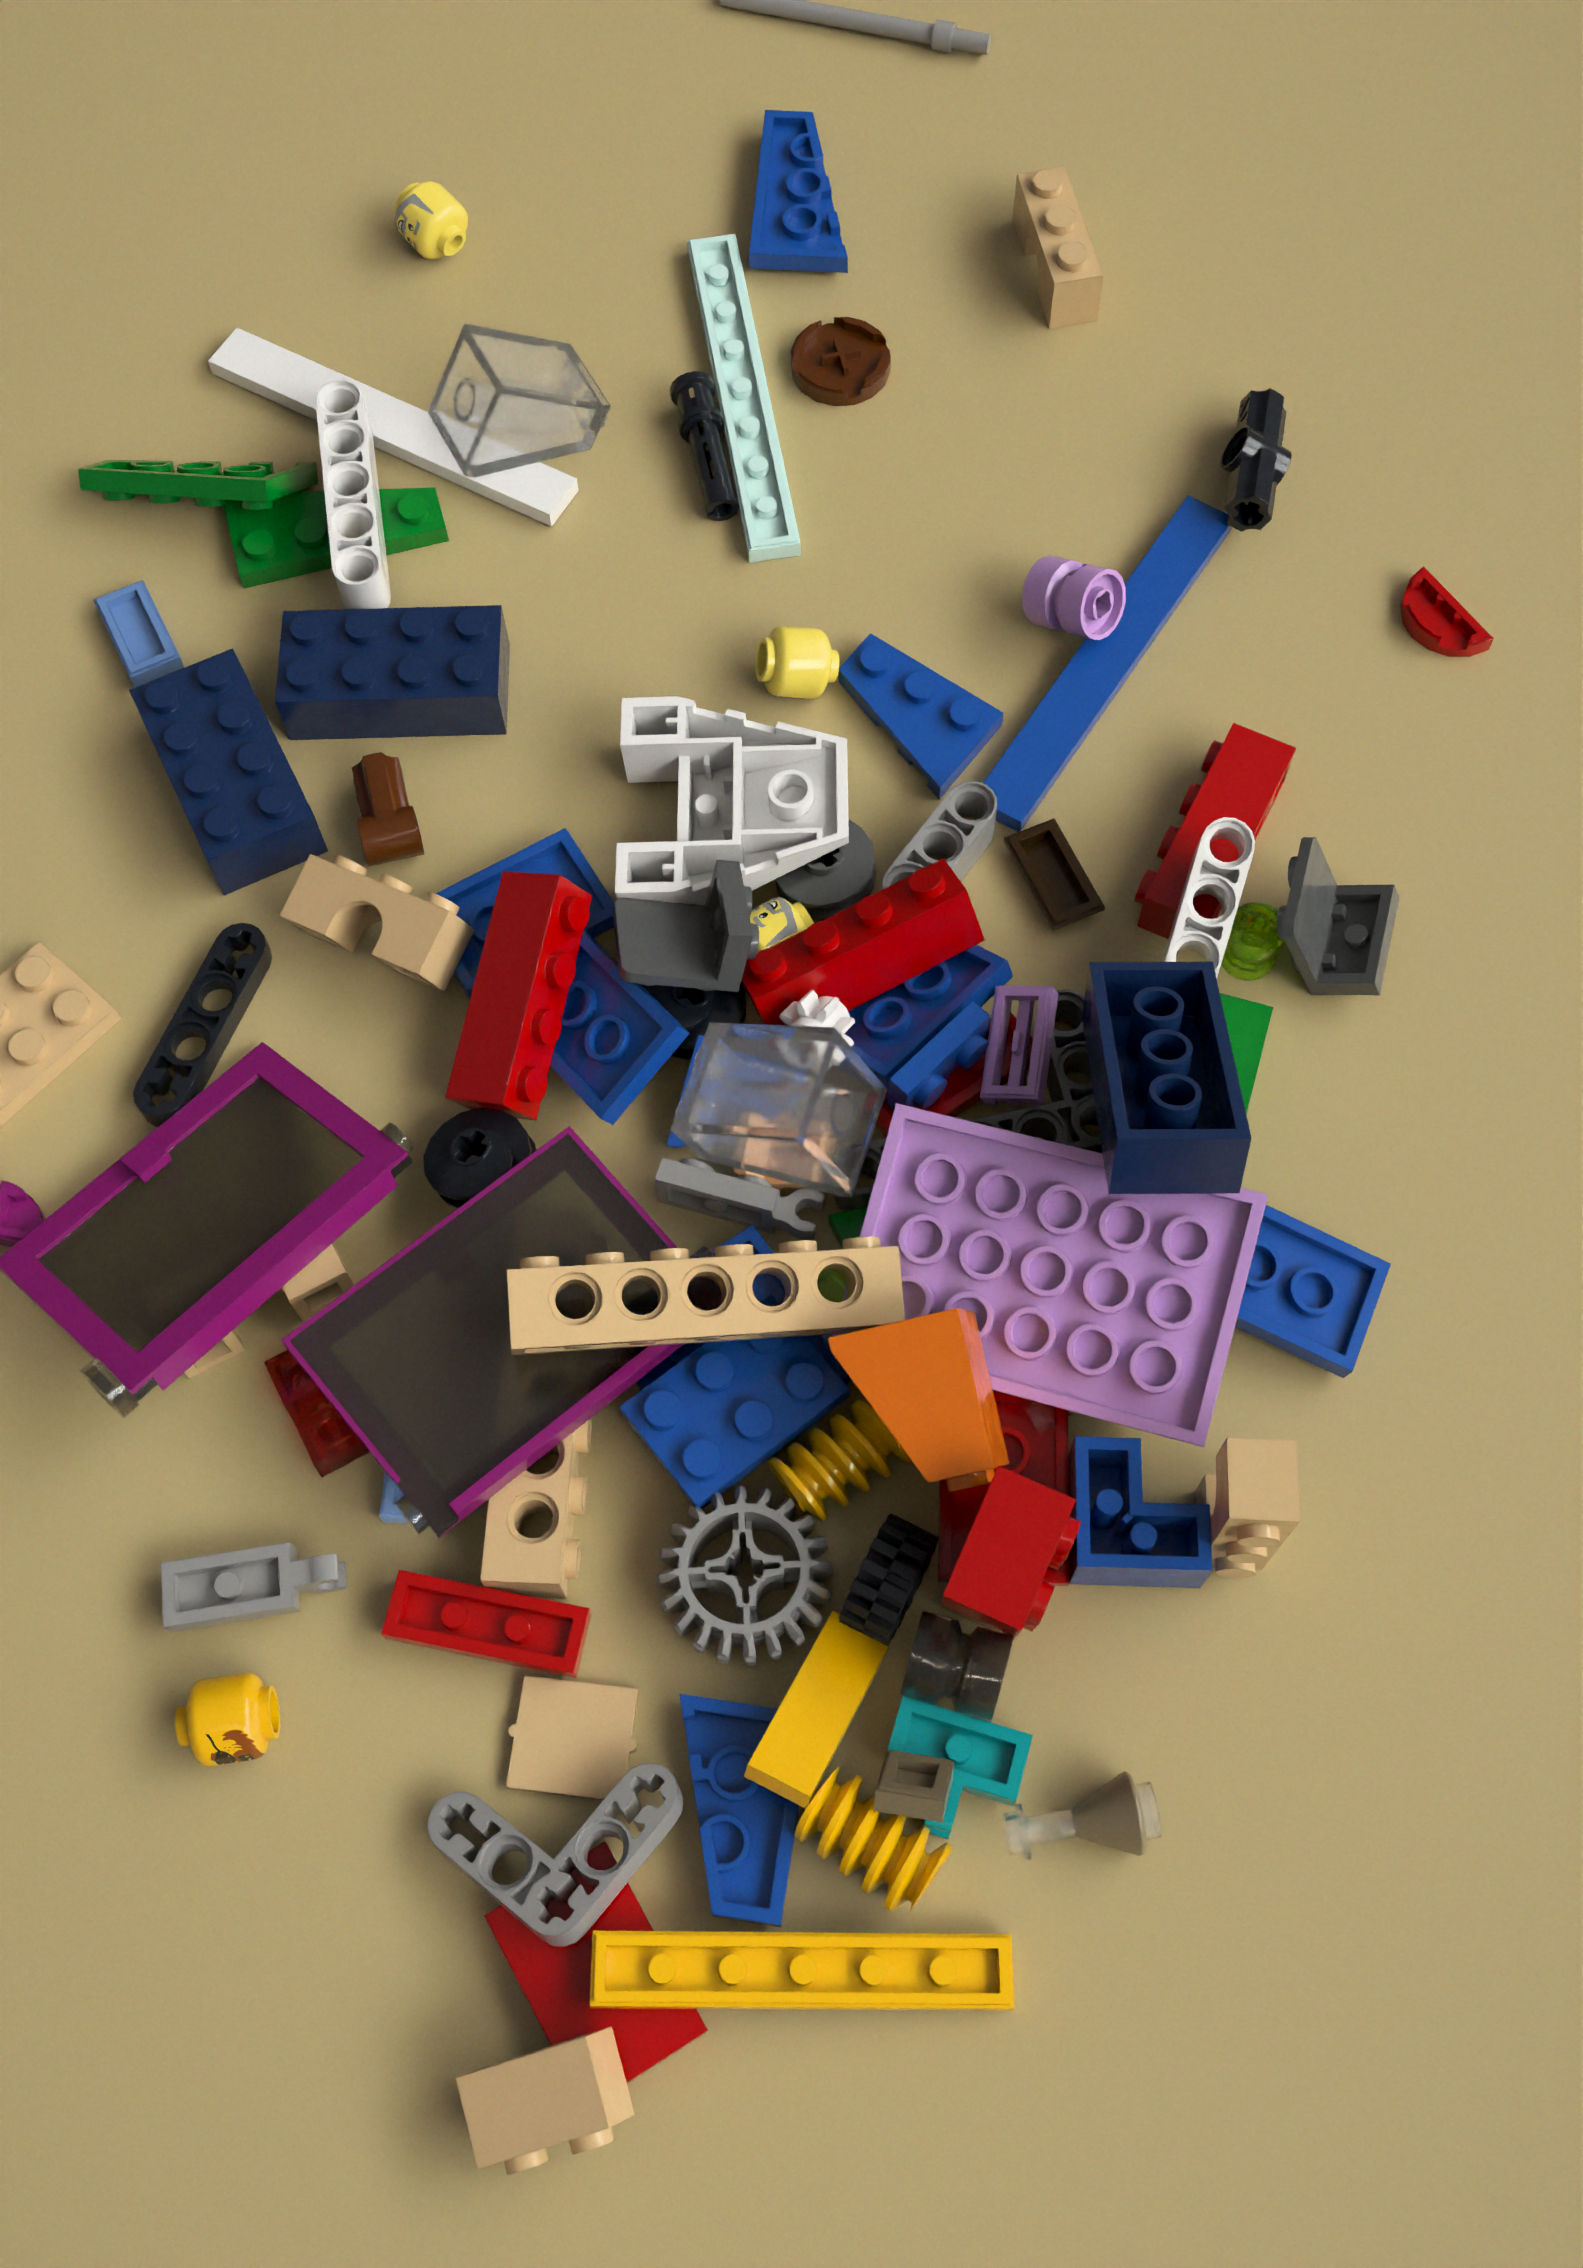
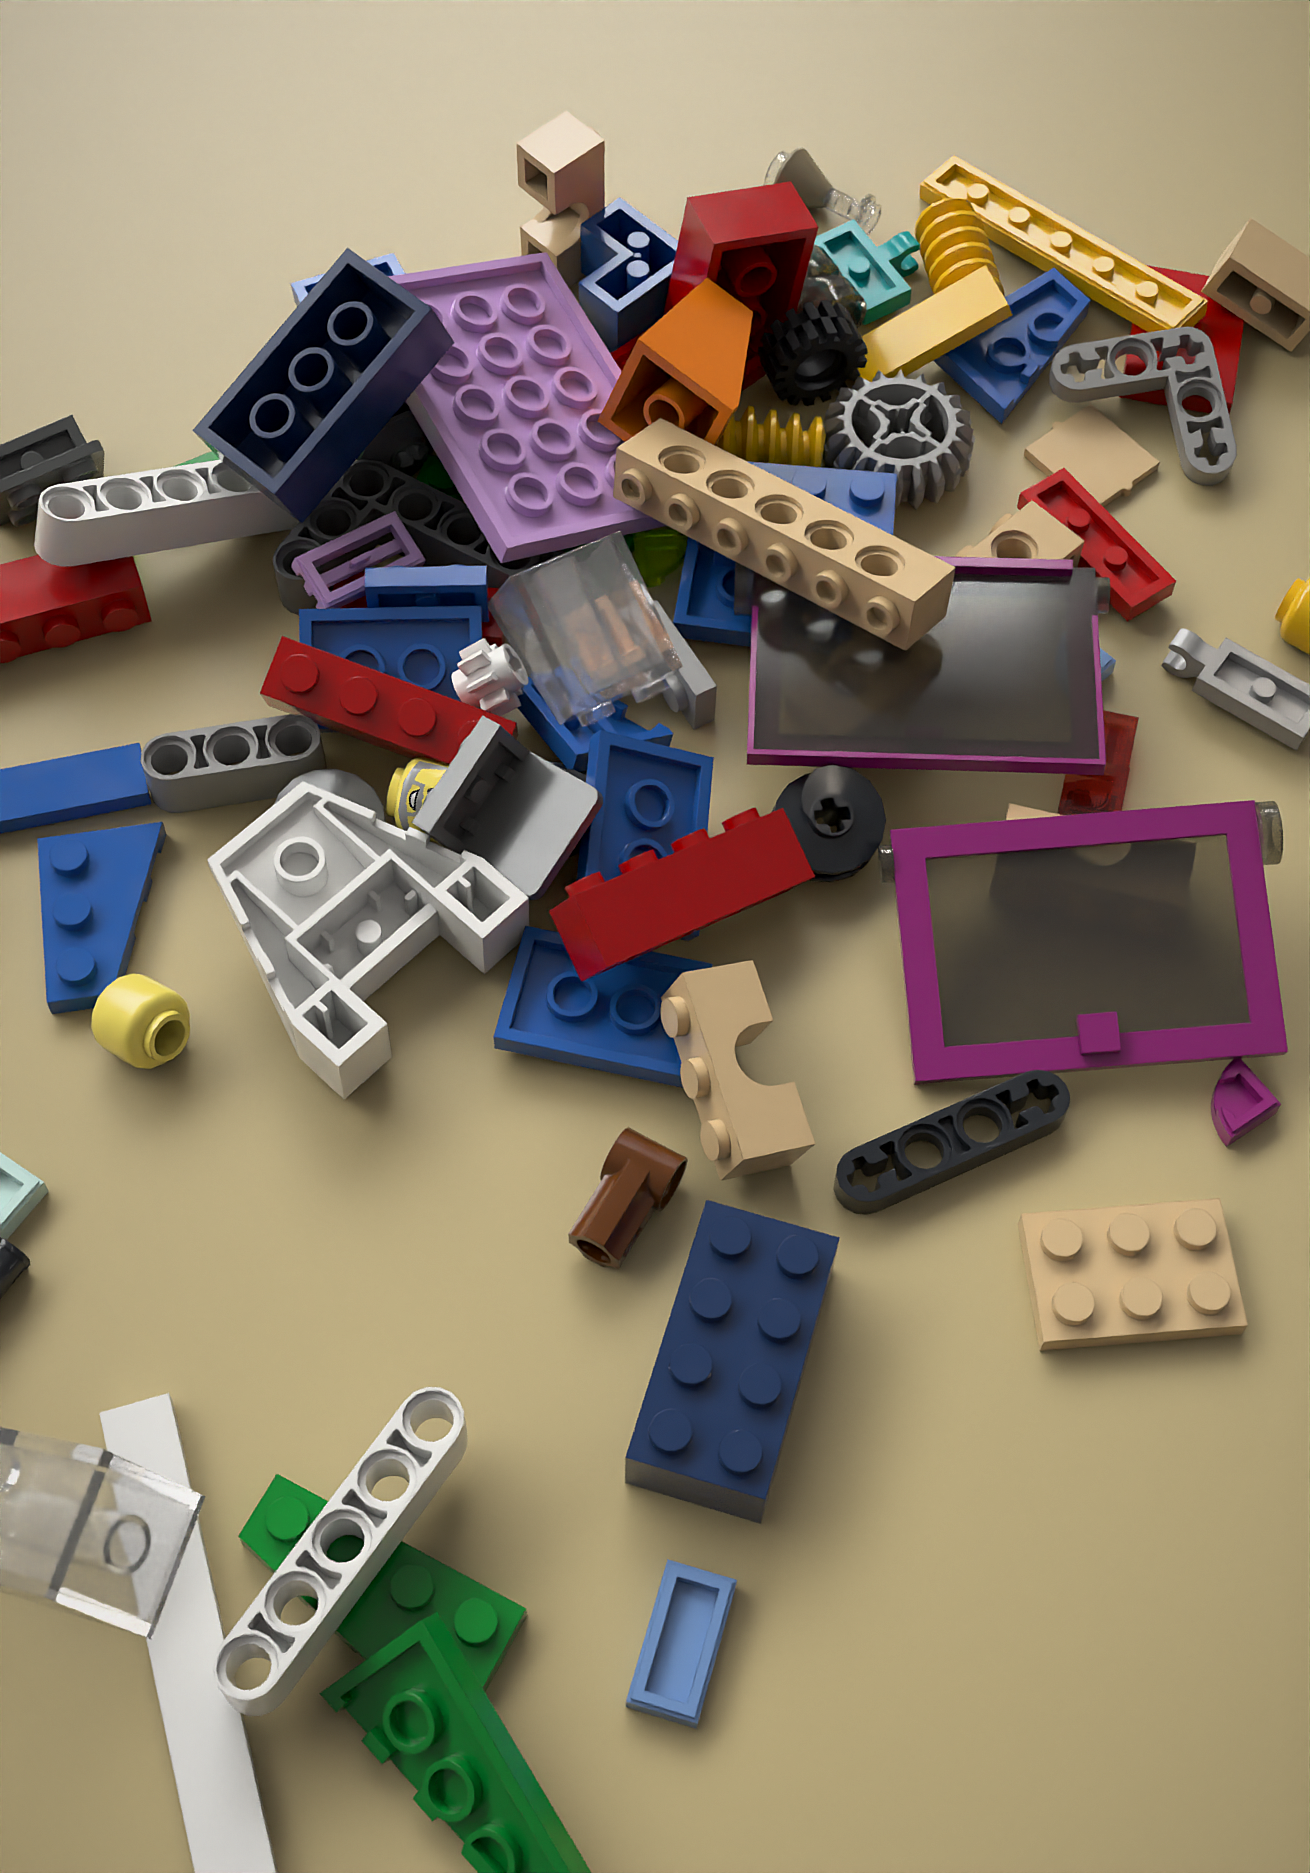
camera: 140 degrees left, 5 degrees down
(393, 672) = (489, 1329): dark blue brick -> none
(914, 1785) = (911, 247): dark tan tile -> none
(1054, 874) = (164, 689): dark brown tile -> none

